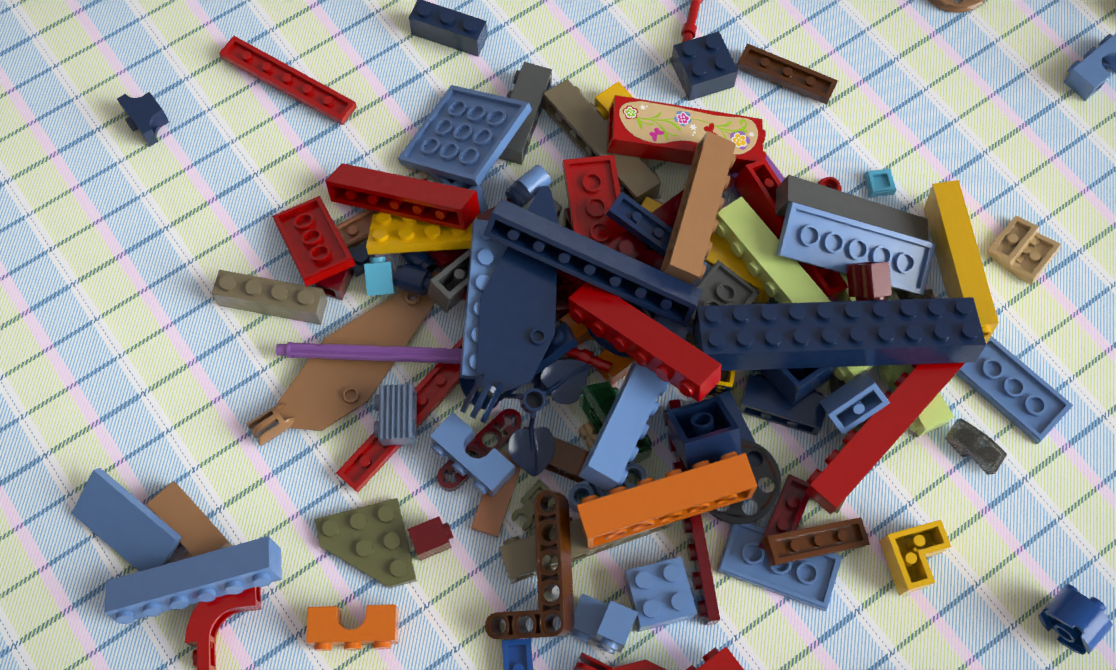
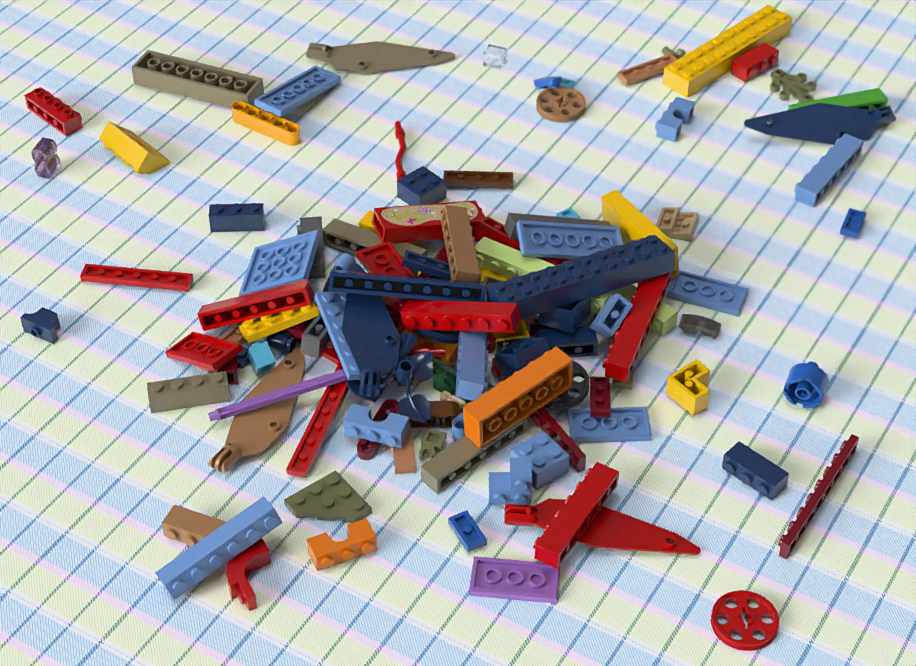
camera: 20 degrees left, 25 degrees down
(125, 523) = (148, 539): medium blue tile -> none
(396, 414) = (314, 418): sand blue brick -> none
(412, 279) = (286, 350): dark blue brick -> none
(430, 537) = (370, 482): dark red brick -> none
(546, 577) = (465, 465): reddish brown beam -> none
(815, 541) = (625, 398): reddish brown plate -> none
(869, 280) = (586, 244): dark red brick -> none

